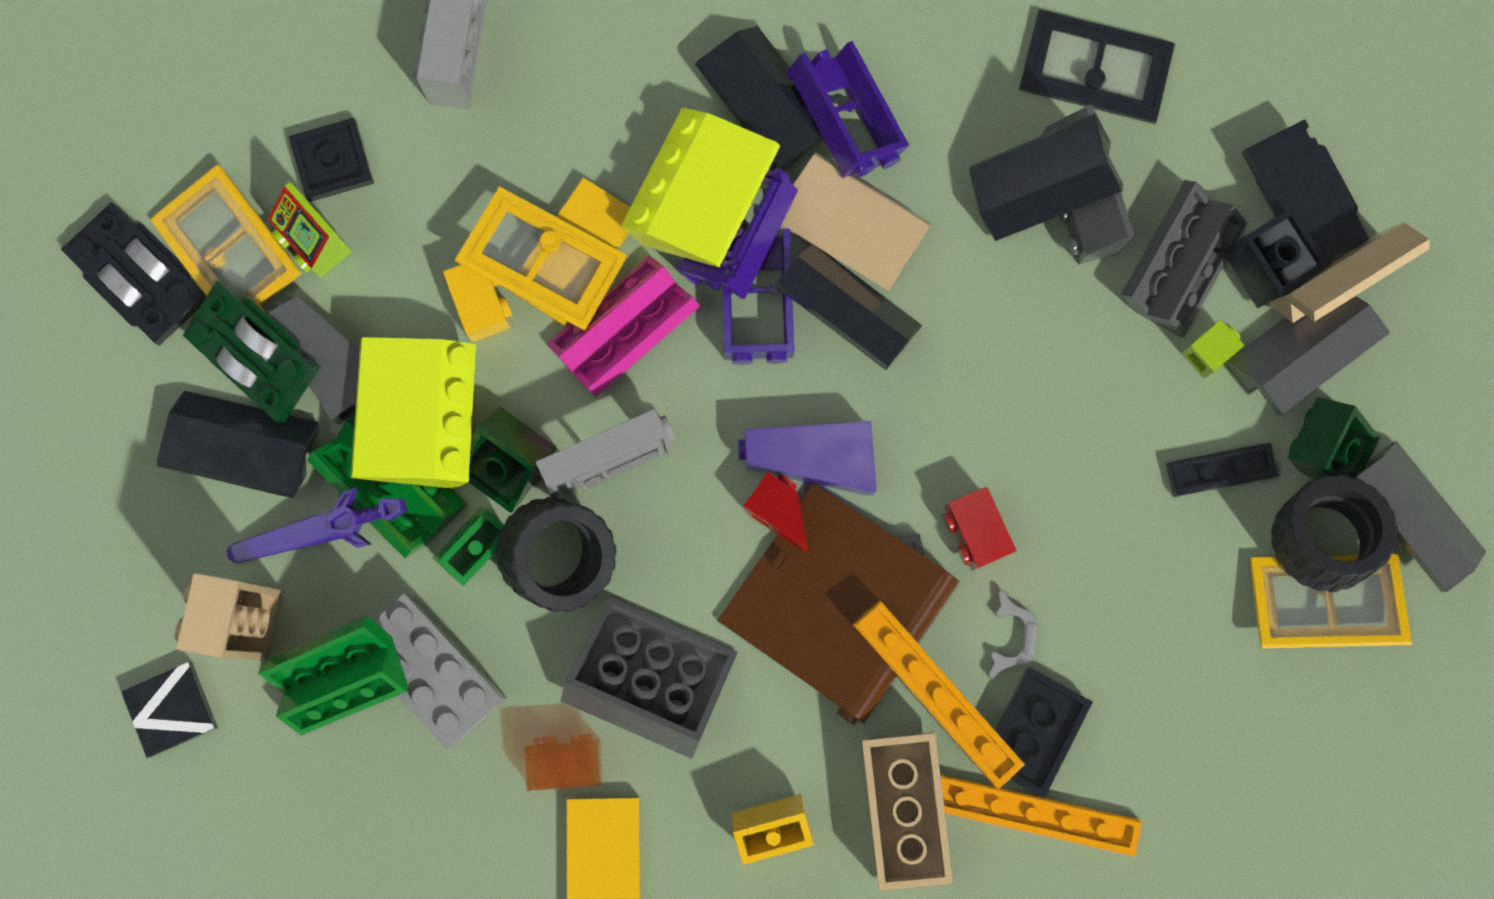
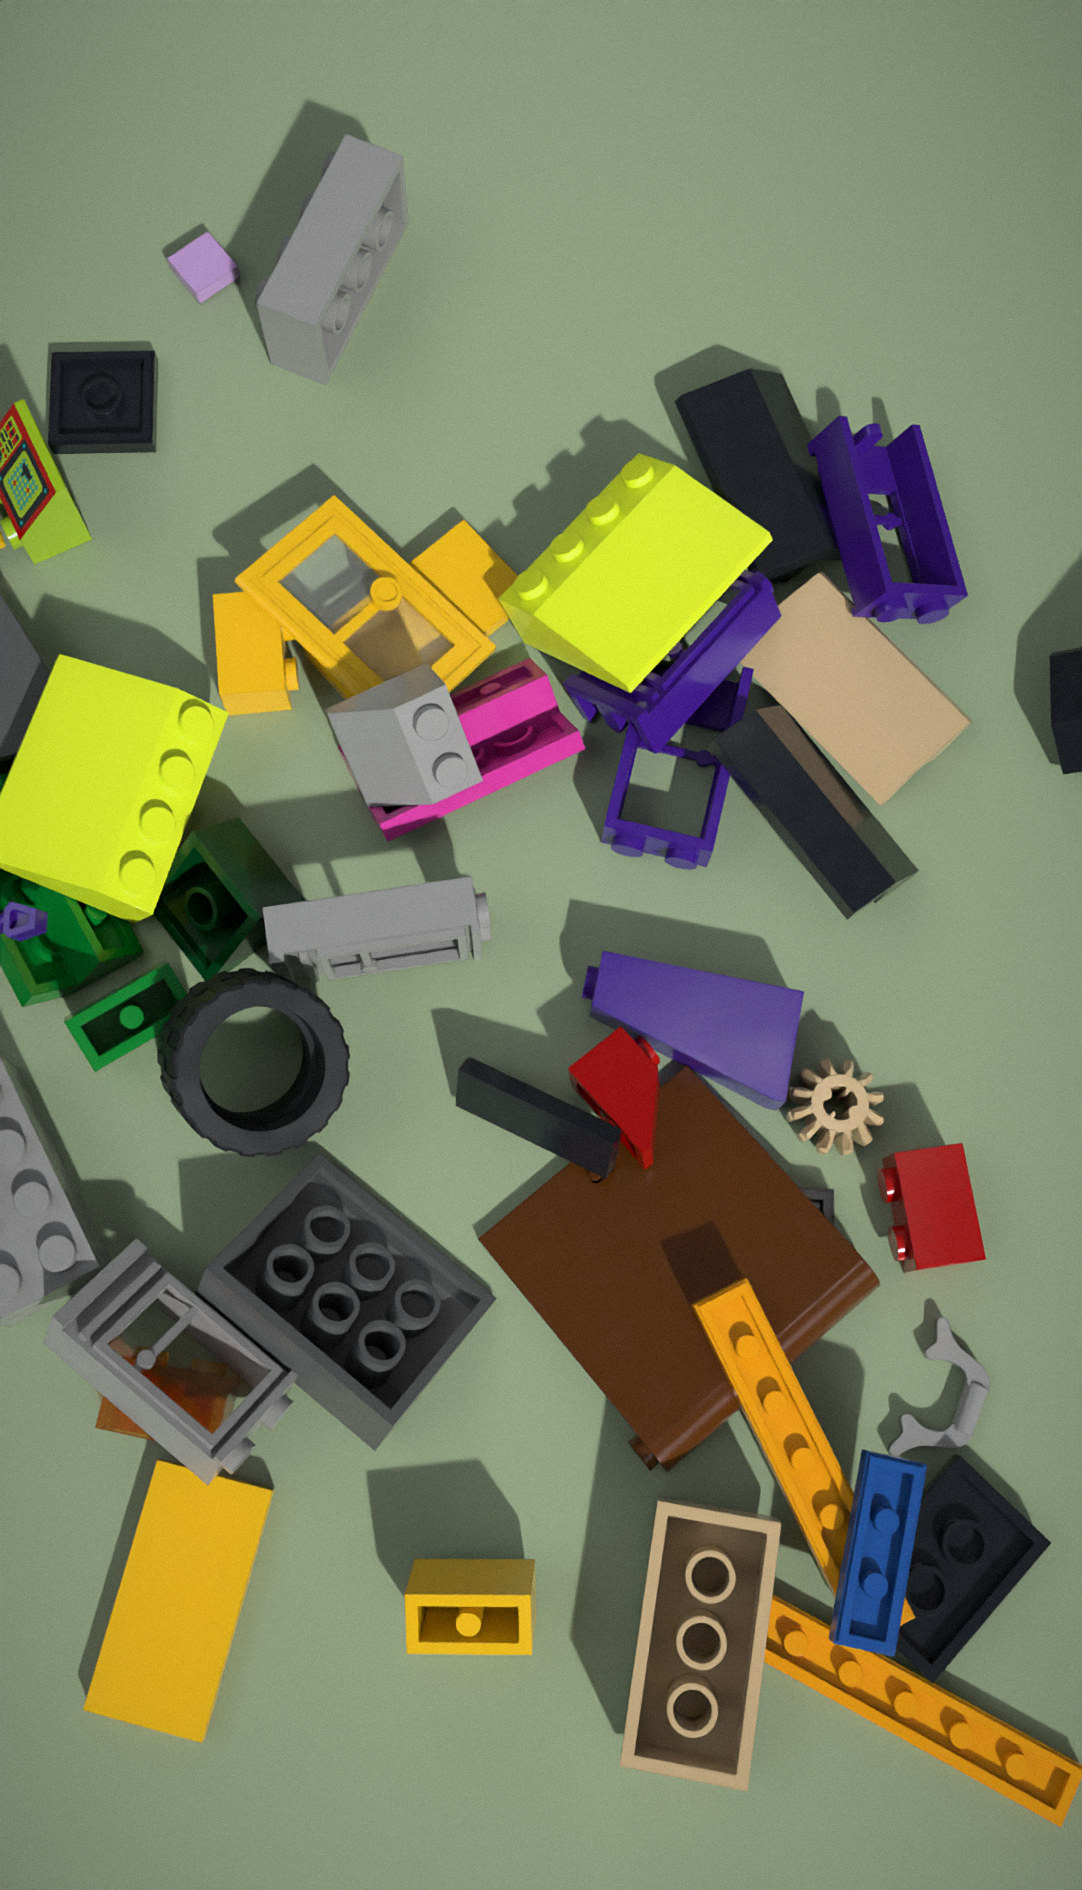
camera: 15 degrees right, 5 degrees down
(367, 51) = (203, 267): none -> lavender tile
(514, 719) = (109, 1304): none -> light grey door
(590, 333) = (405, 741): none -> light grey slope
(732, 539) = (538, 1117): none -> black tile
(919, 490) = (850, 1124): none -> tan gear
(994, 734) = (877, 1553): none -> blue tile

